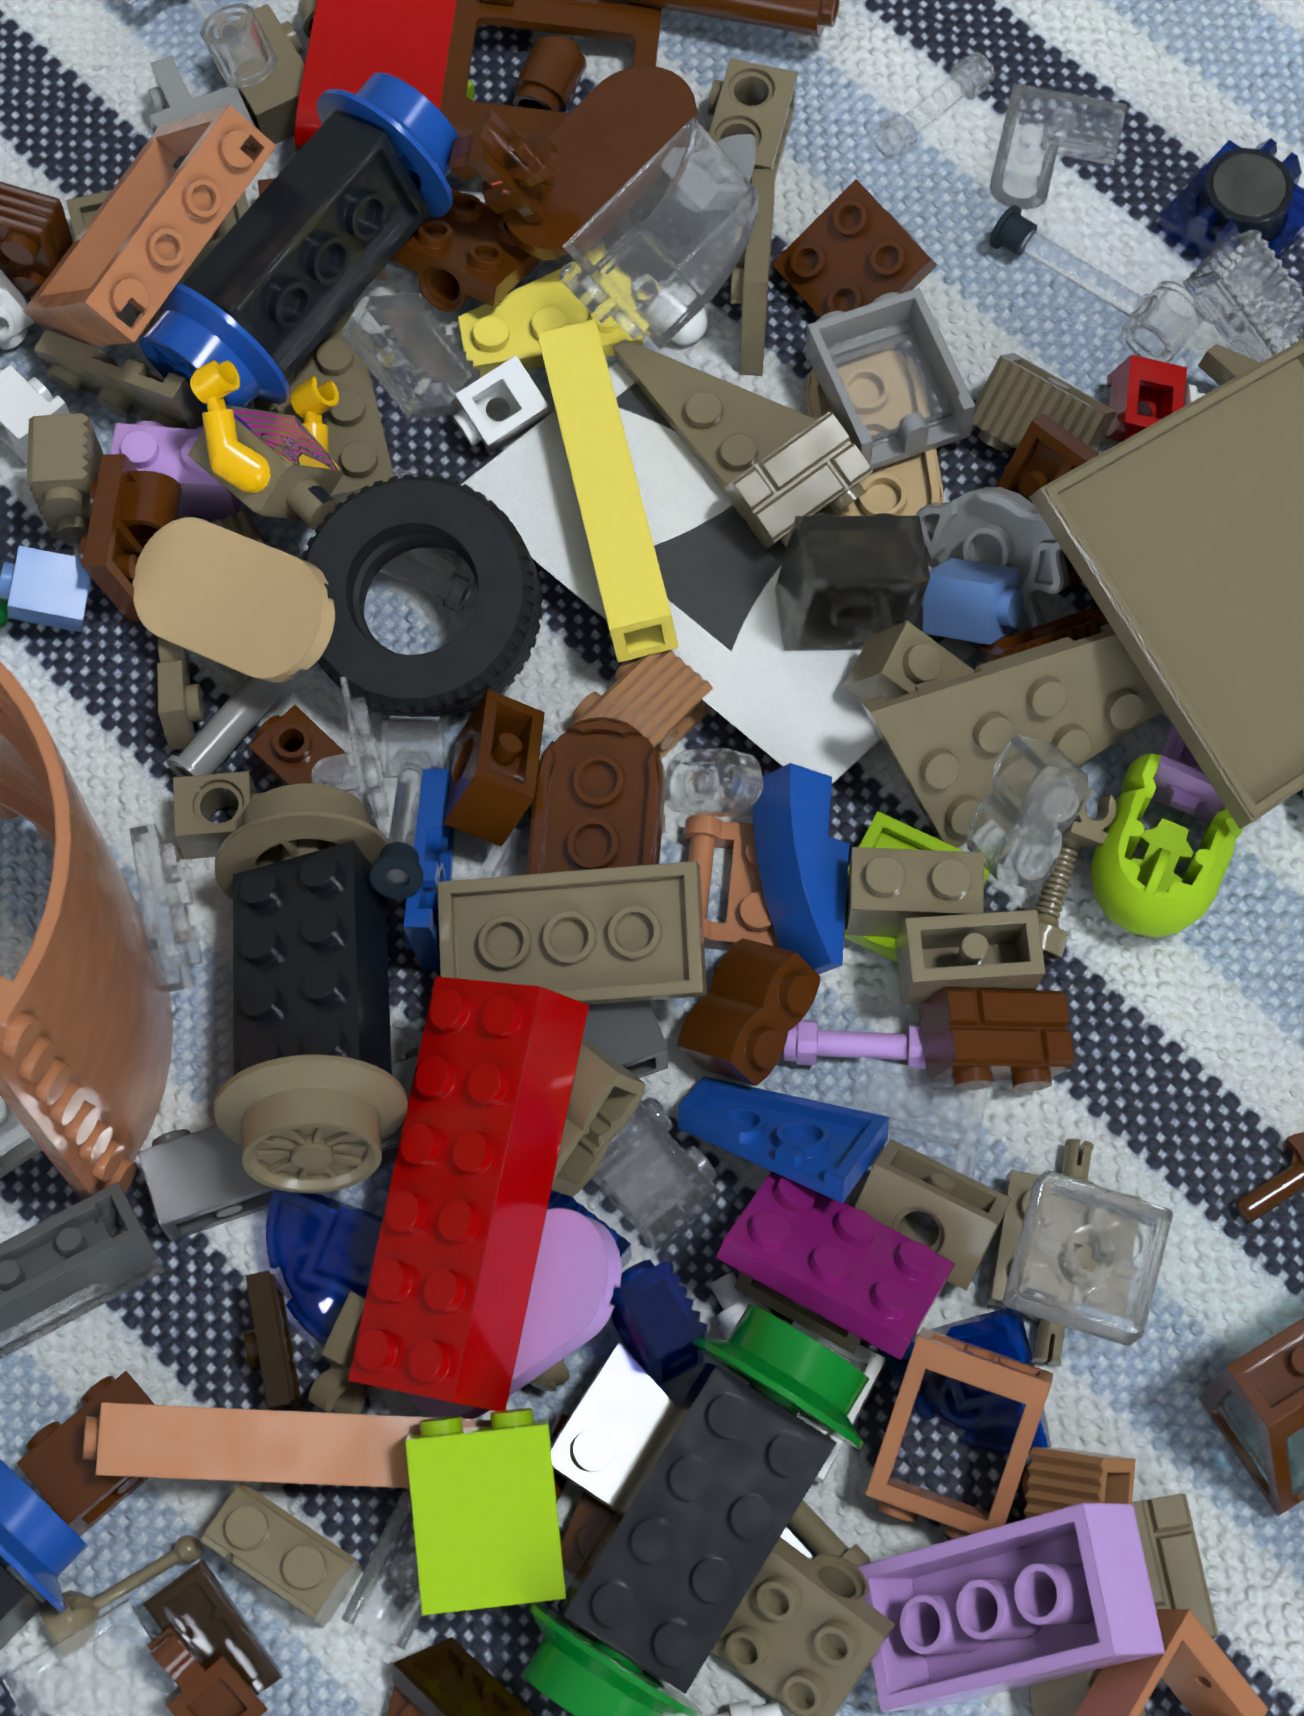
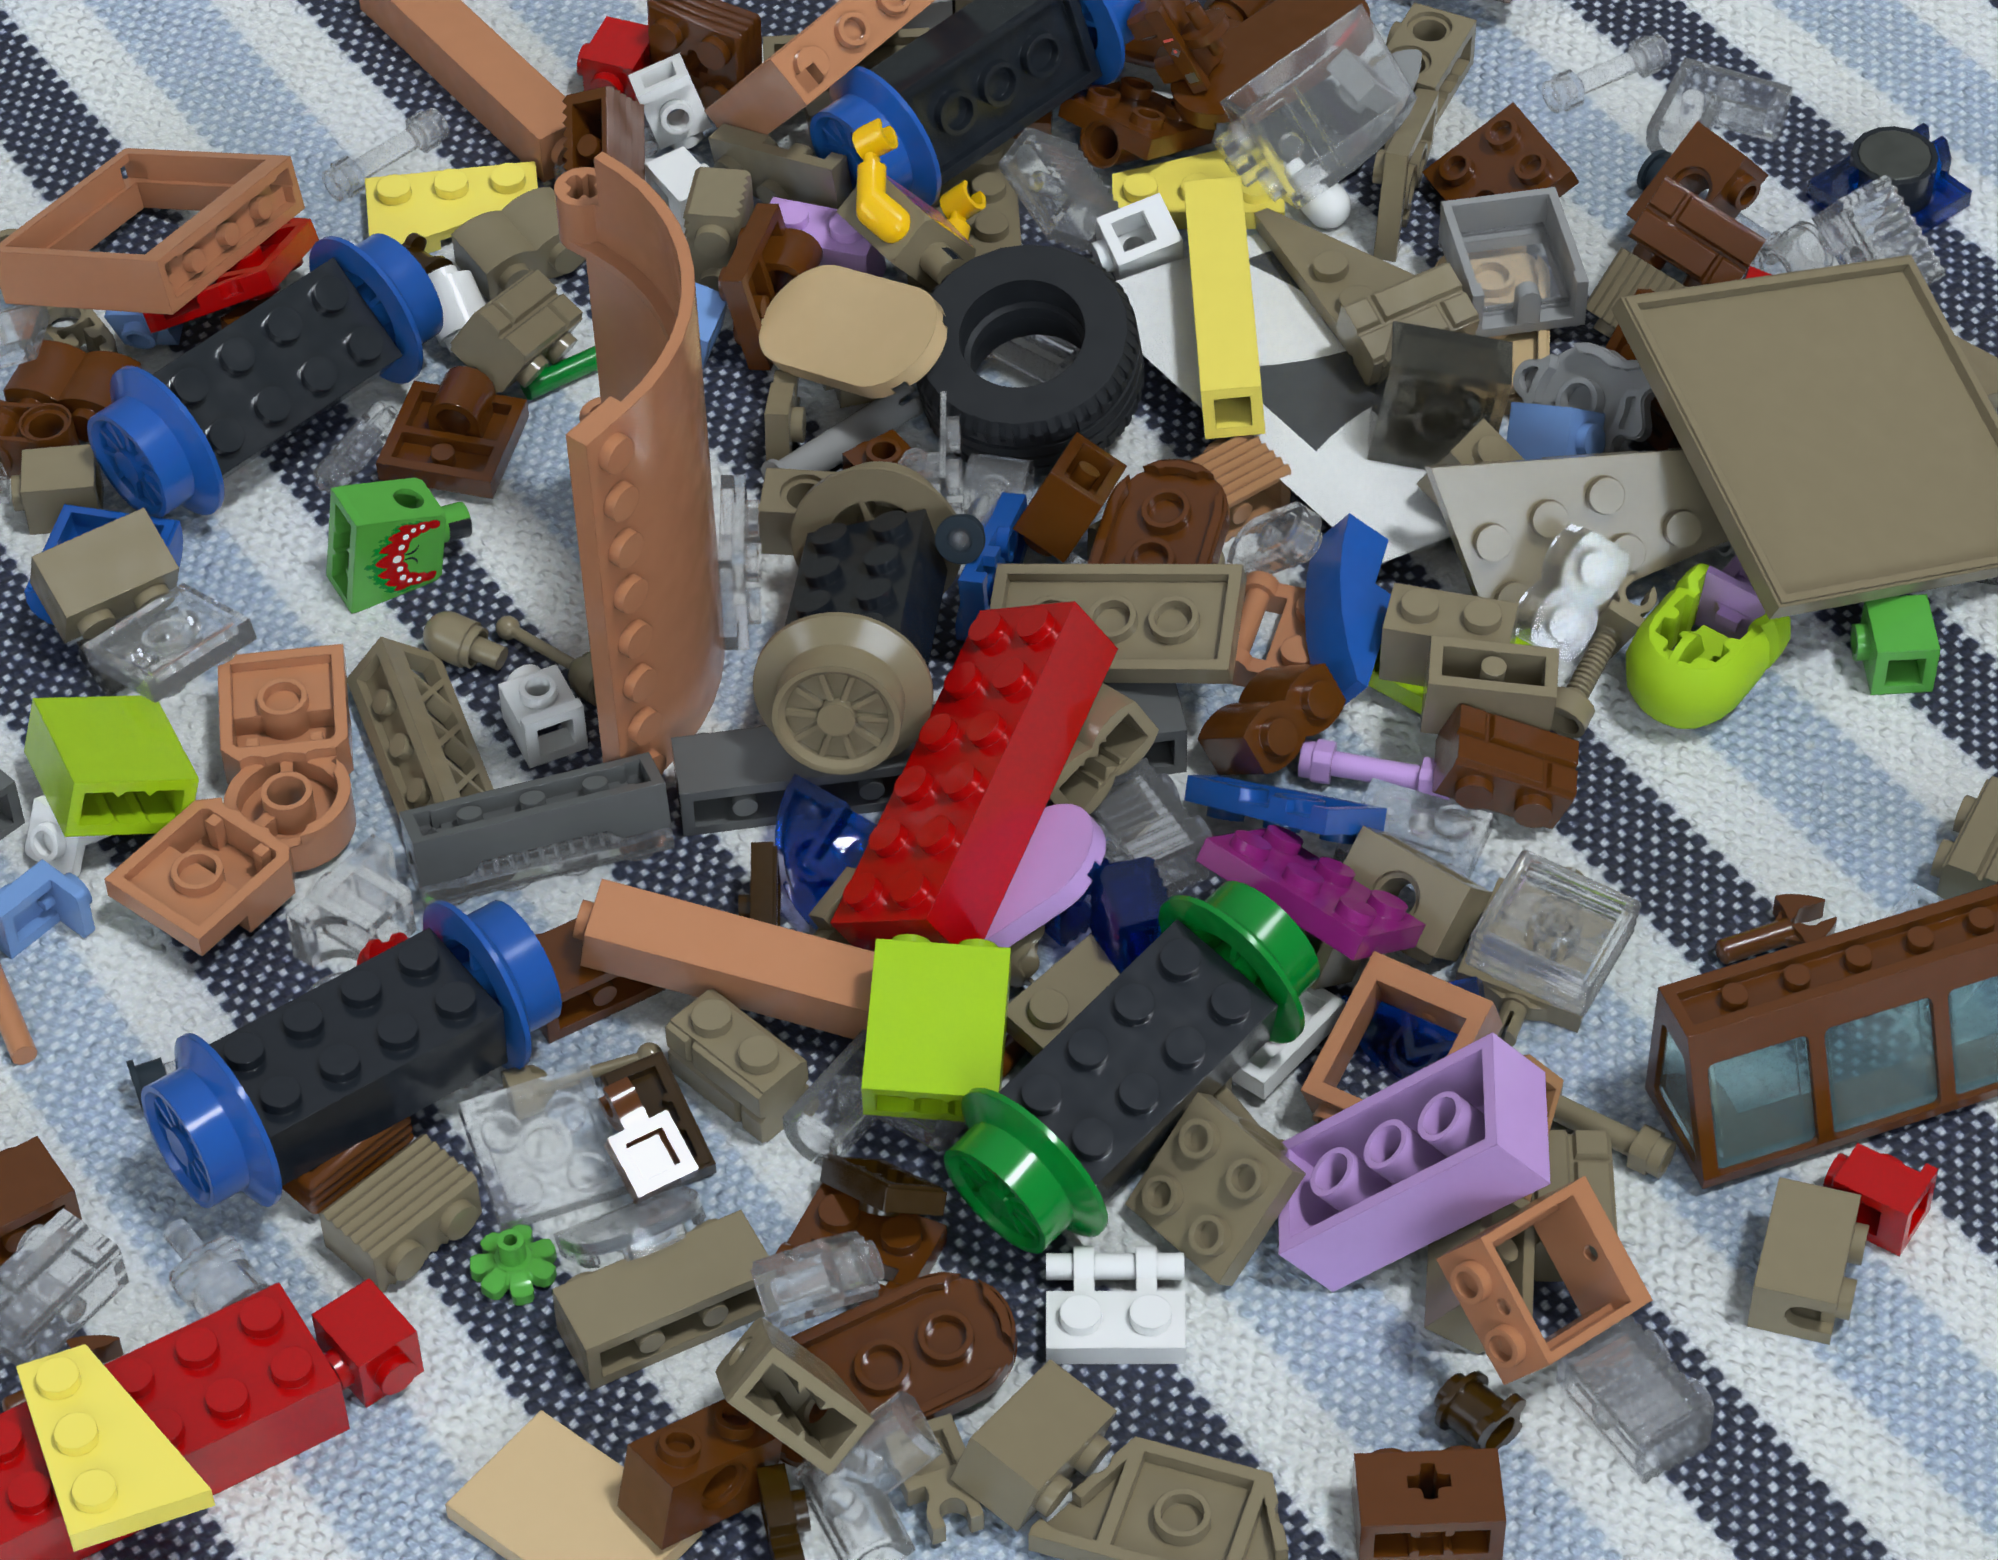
camera: 10 degrees right, 20 degrees down
(1030, 281) = (1708, 163): none -> reddish brown brick
(1071, 331) = (1693, 237): none -> reddish brown brick
(1216, 1481) = (1646, 1149): none -> dark tan bar

